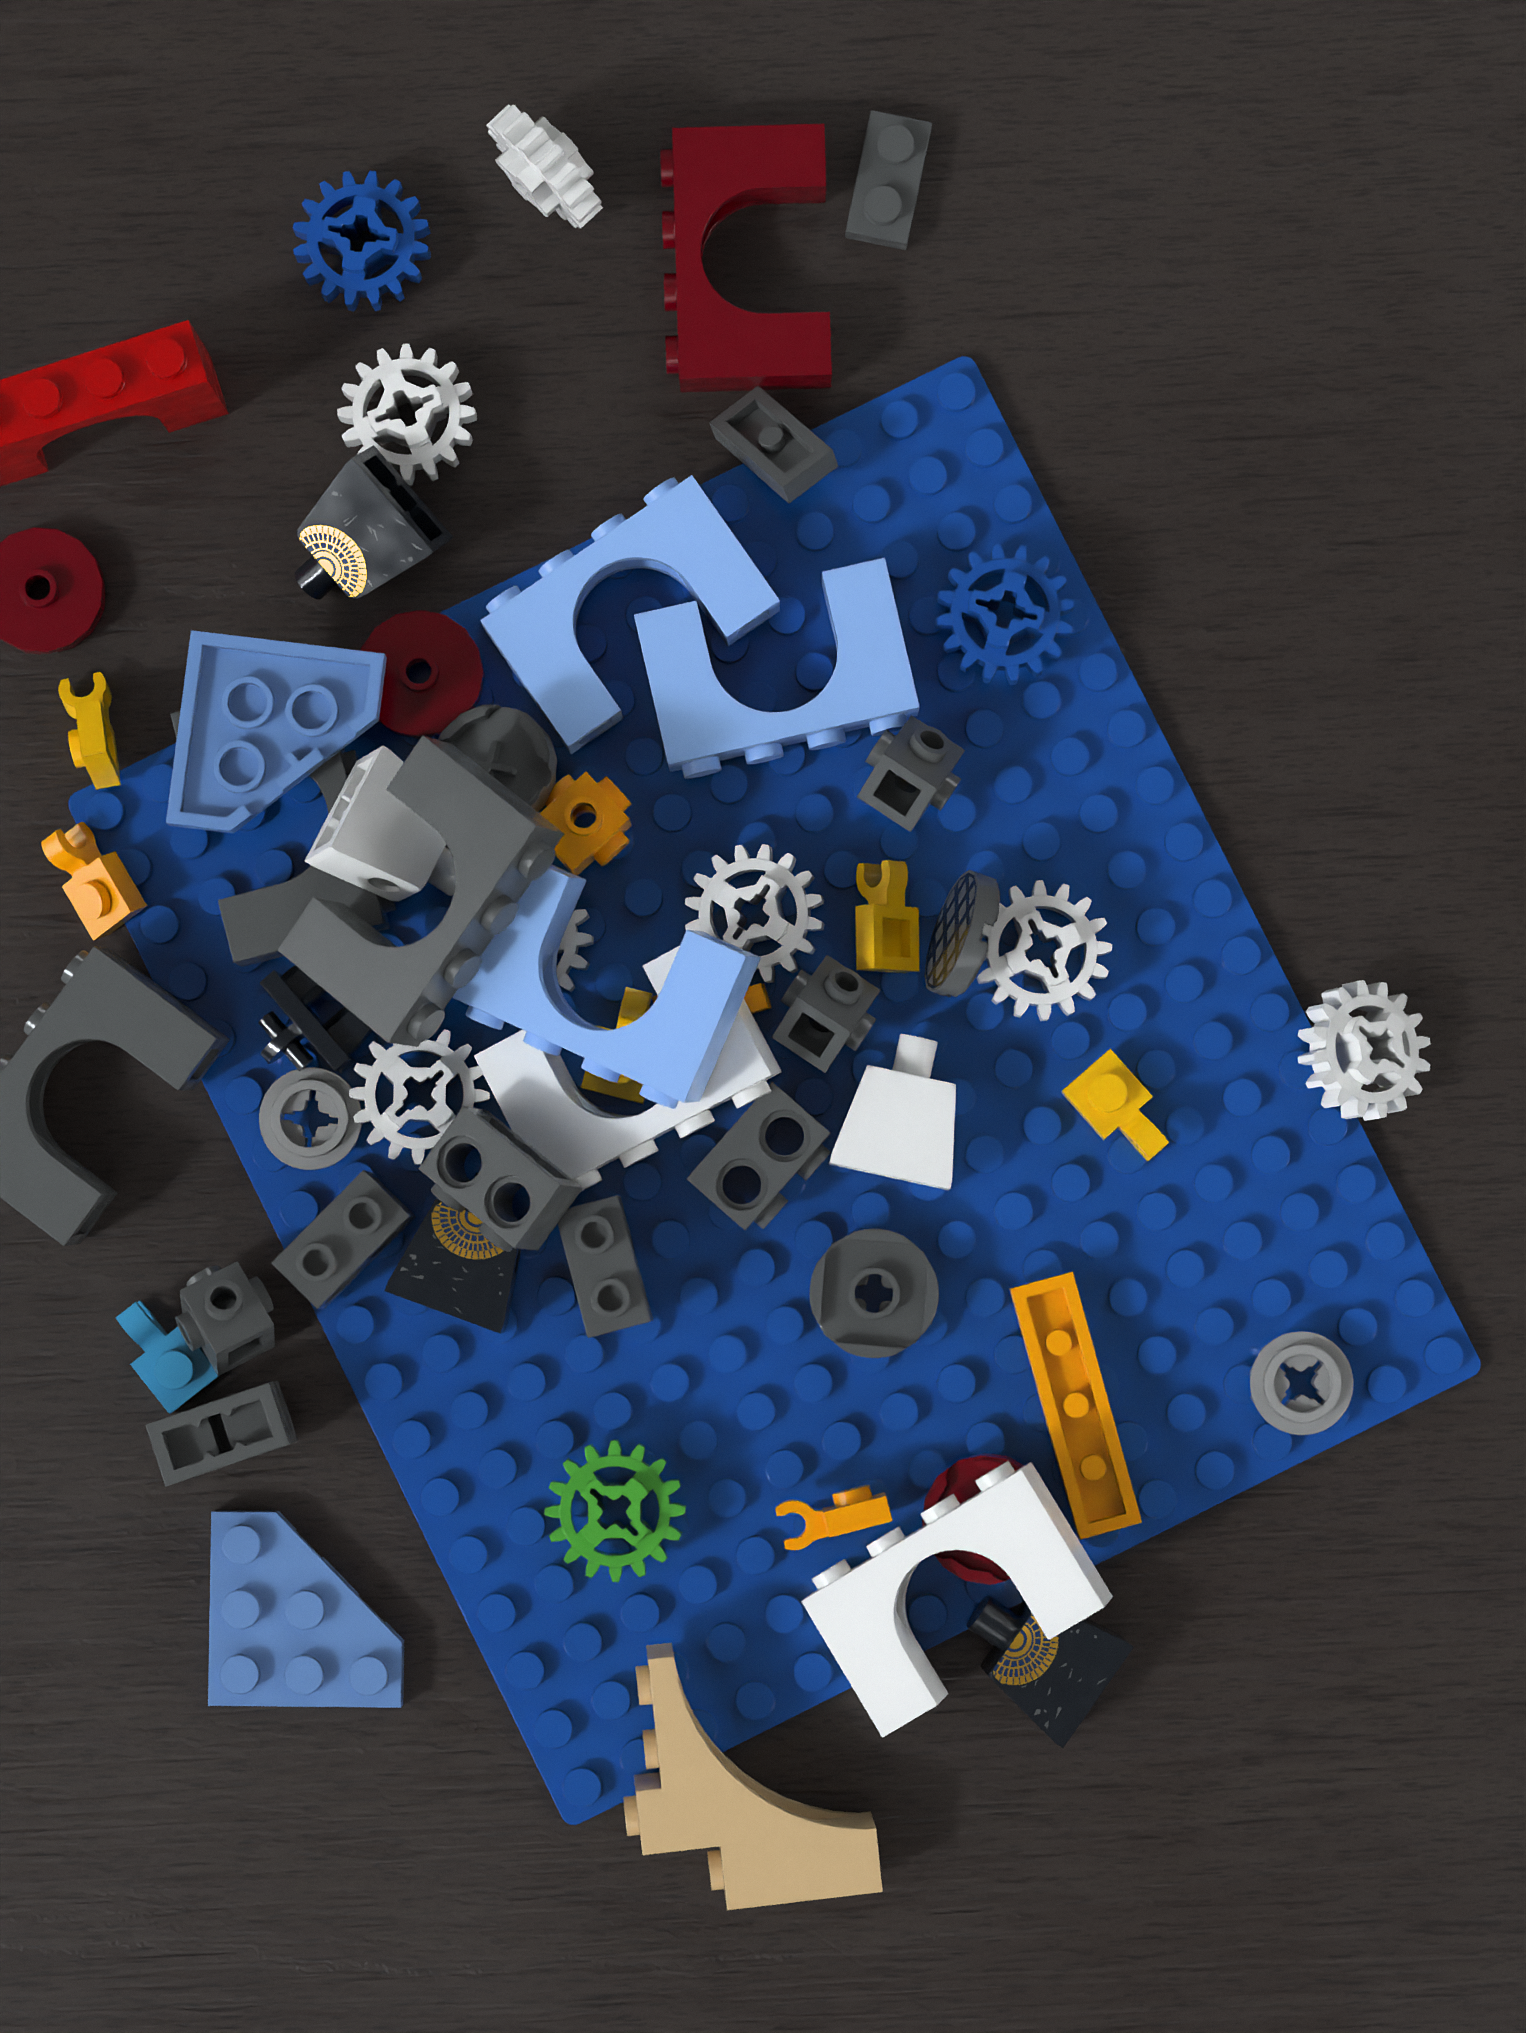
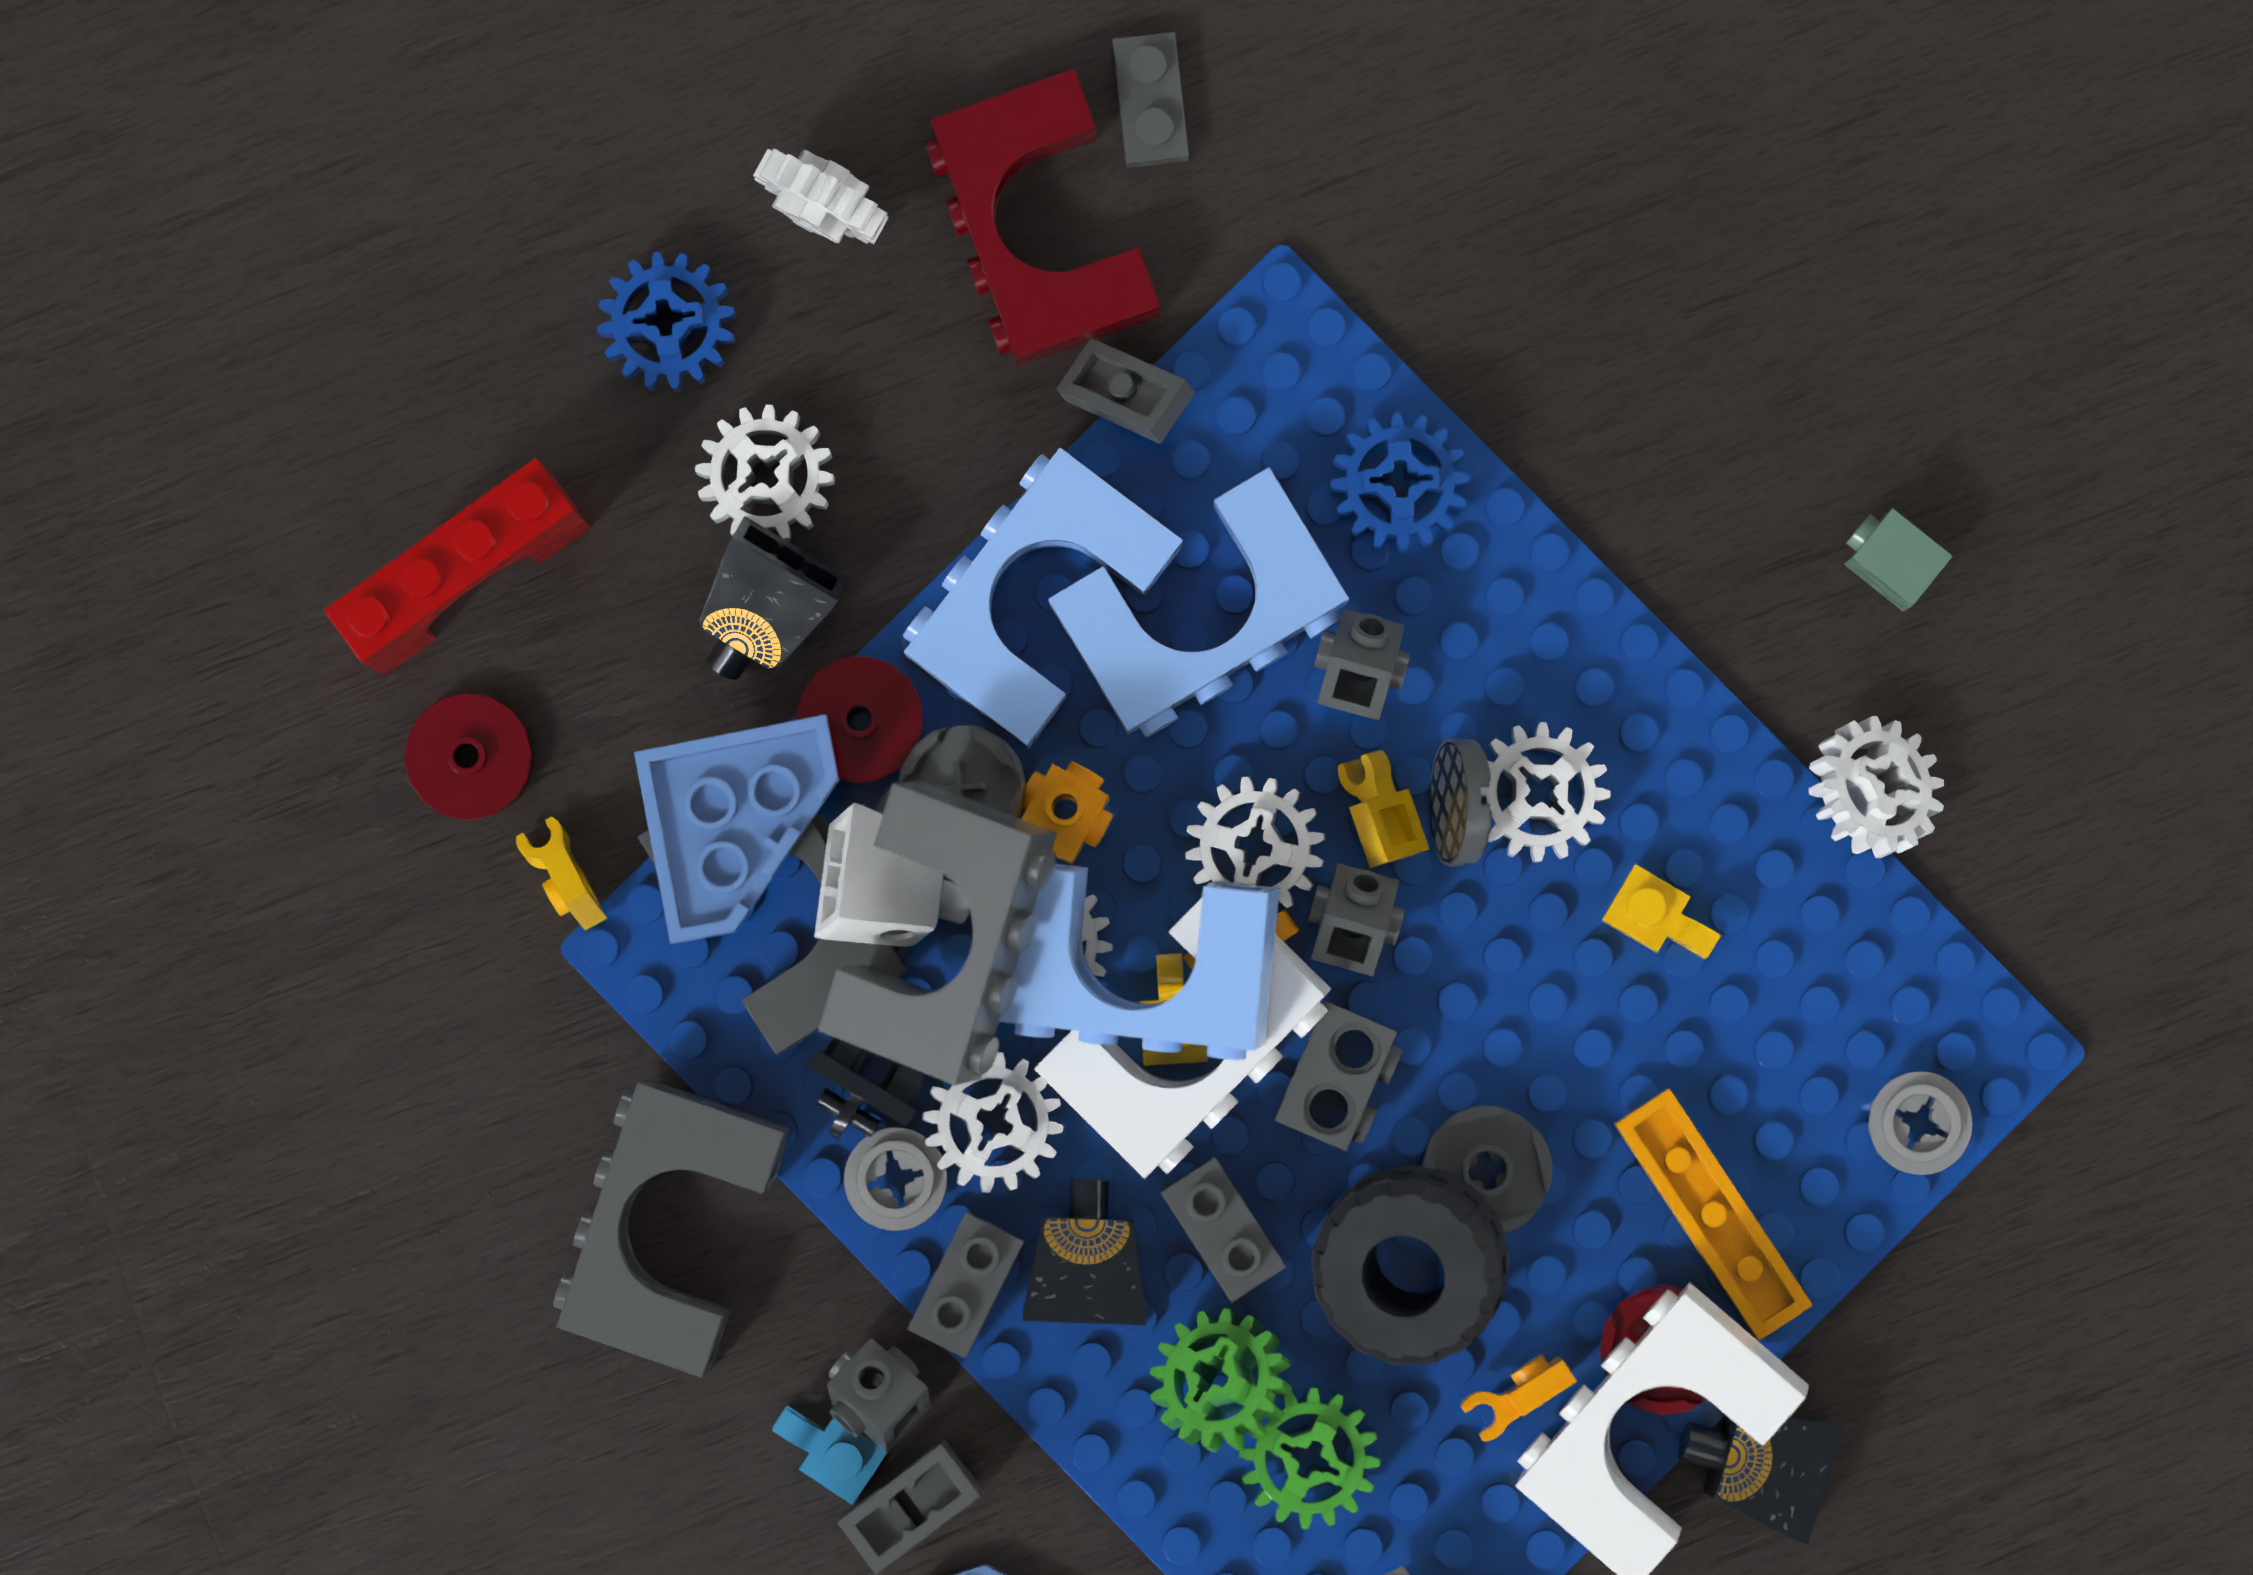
camera: 15 degrees left, 0 degrees up
(100, 884) = (620, 1020): light orange plate -> none
(505, 1169) = (1101, 1165): dark grey brick -> none
(532, 1429) = (1209, 1402): none -> bright green gear
(716, 1381) = (1385, 1318): none -> black tyre
(901, 1120) = (1459, 997): white torso -> none
(1453, 839) = (1895, 558): none -> sand green brick

